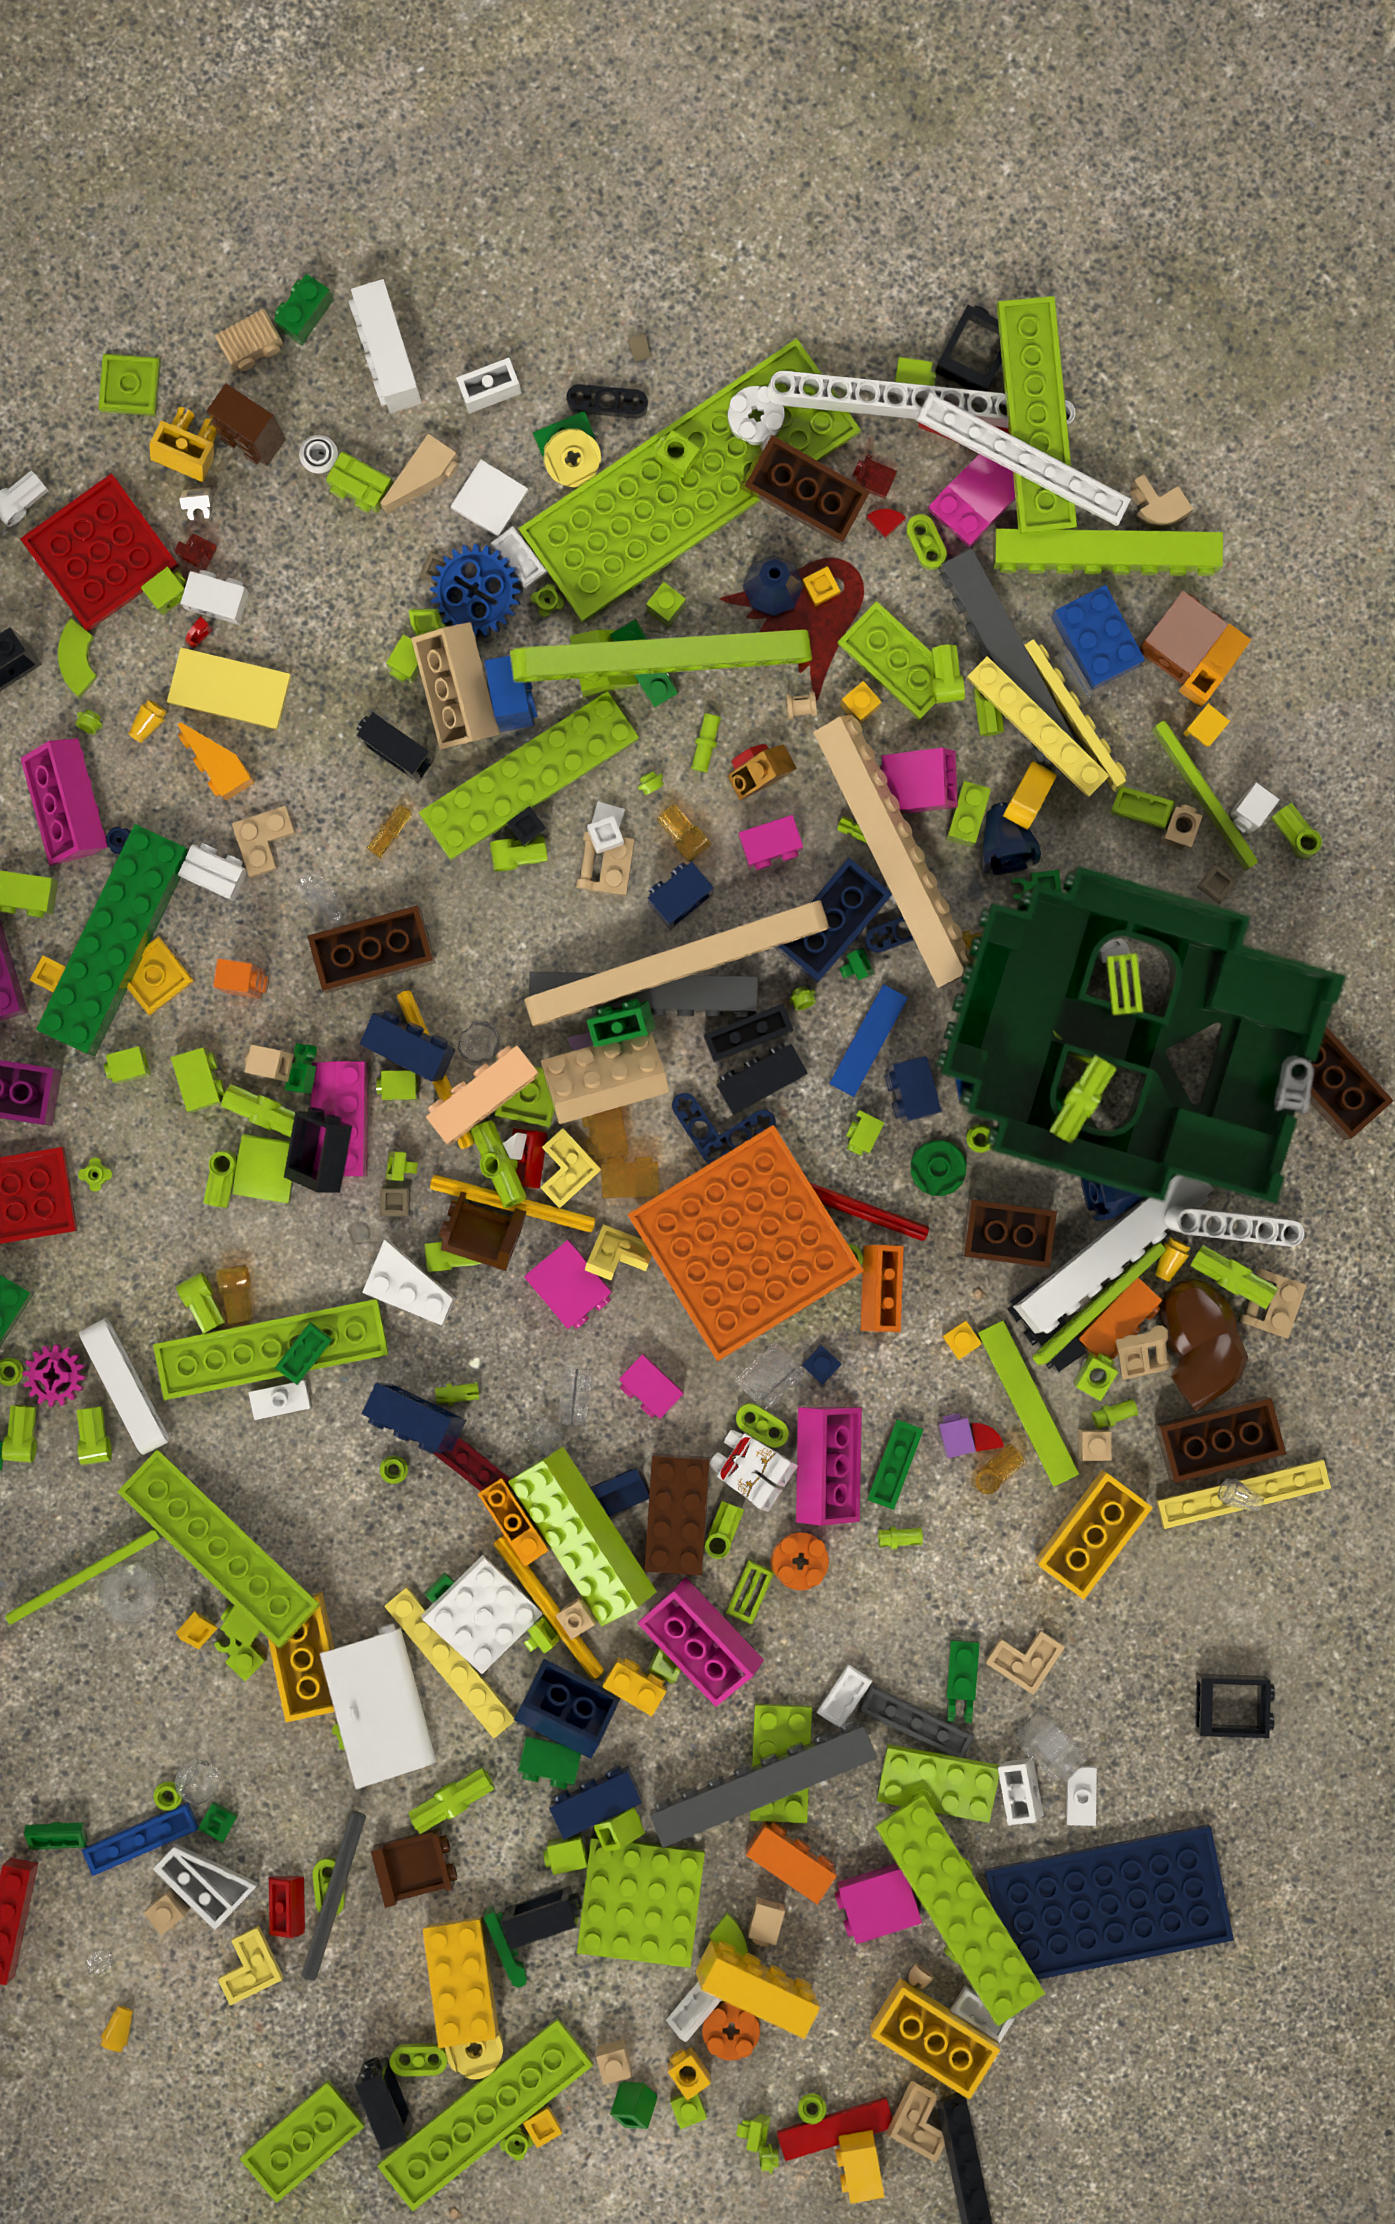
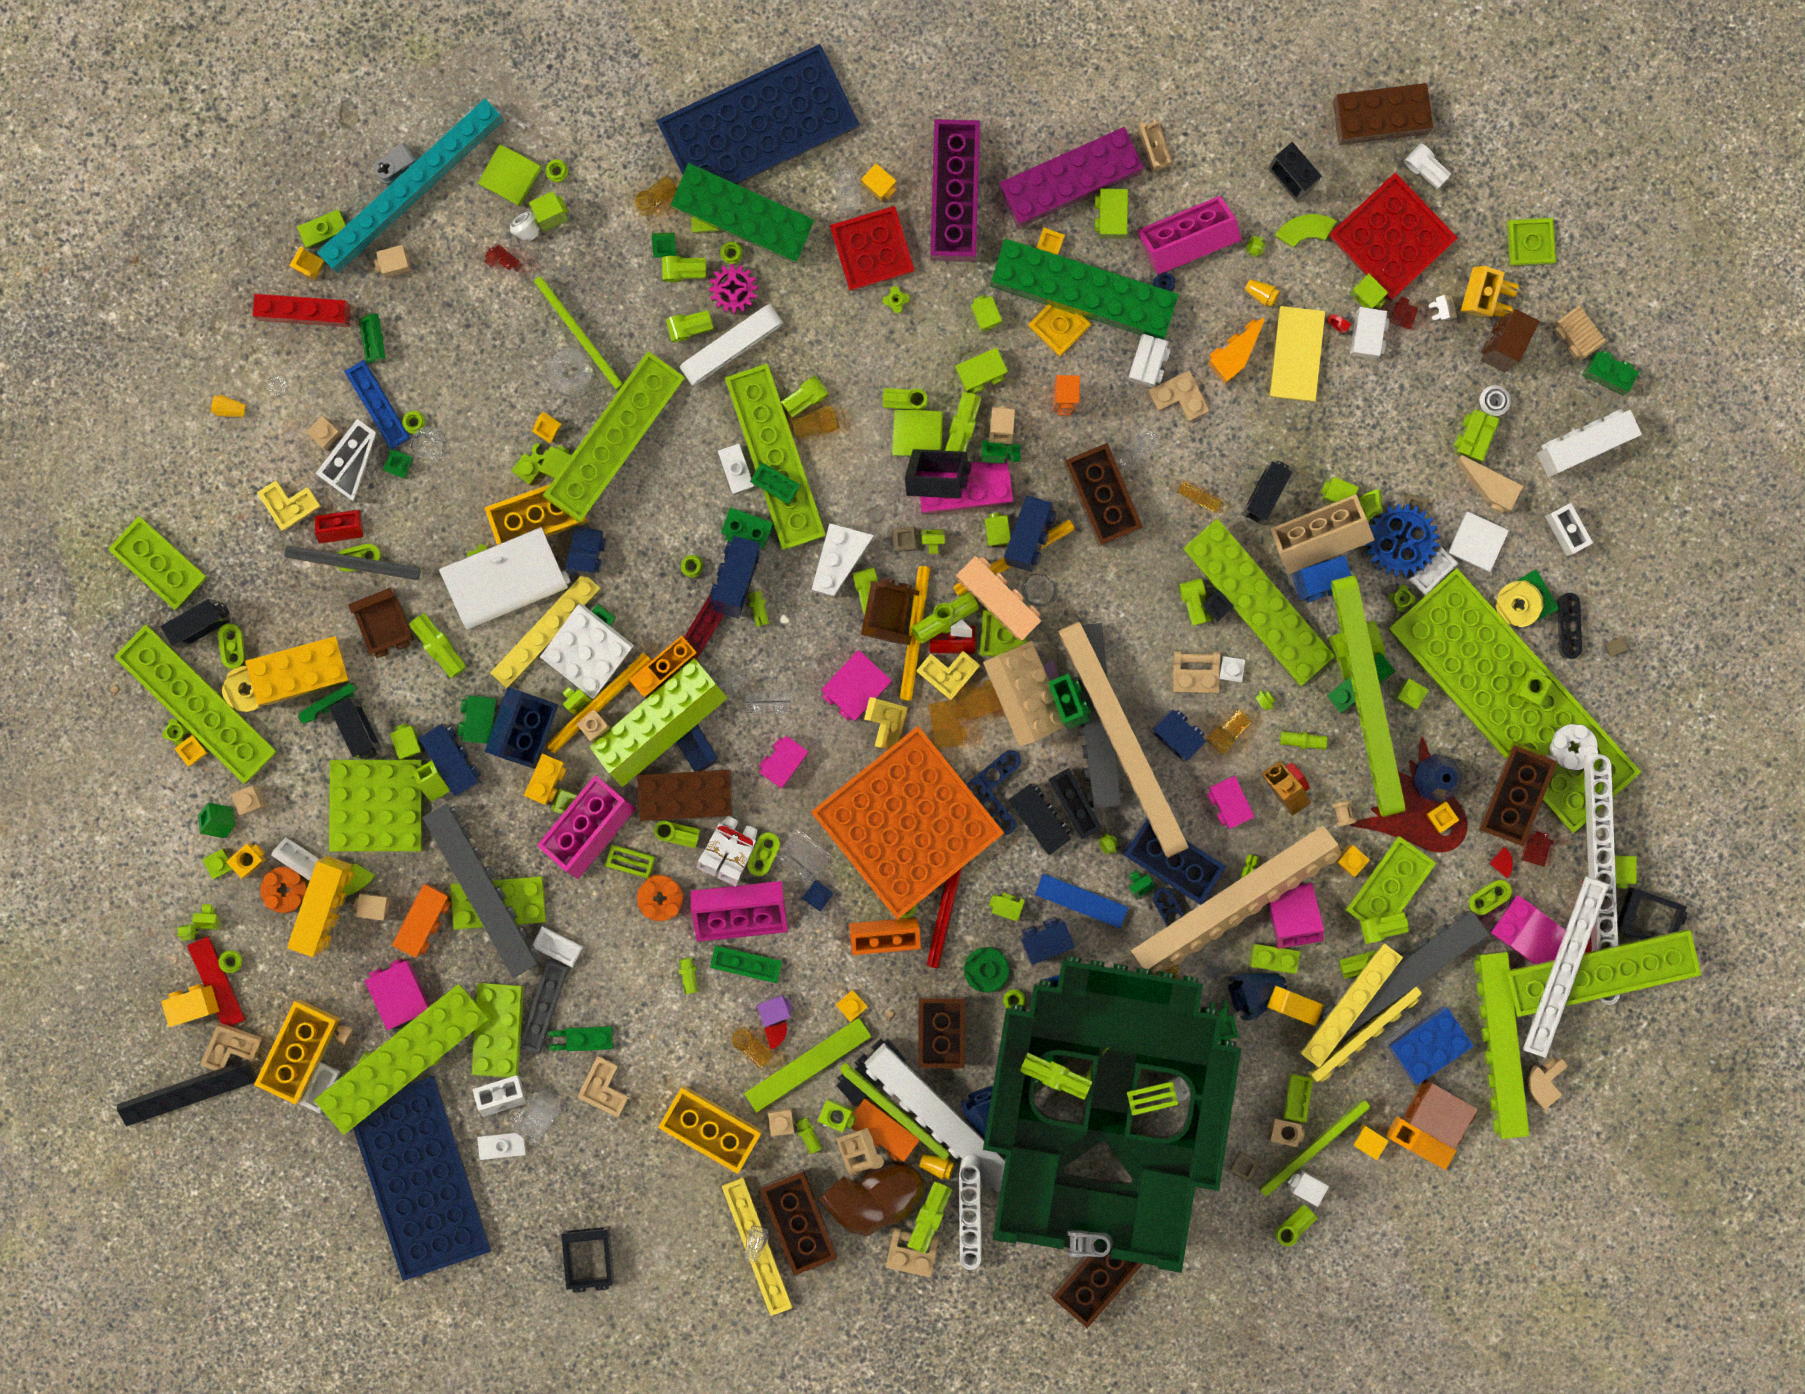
camera: 80 degrees right, 0 degrees up
(353, 1395) = (746, 527): none -> green brick
(359, 1601) = (585, 552): none -> dark blue brick
(605, 834) = (1218, 669): white plate -> none

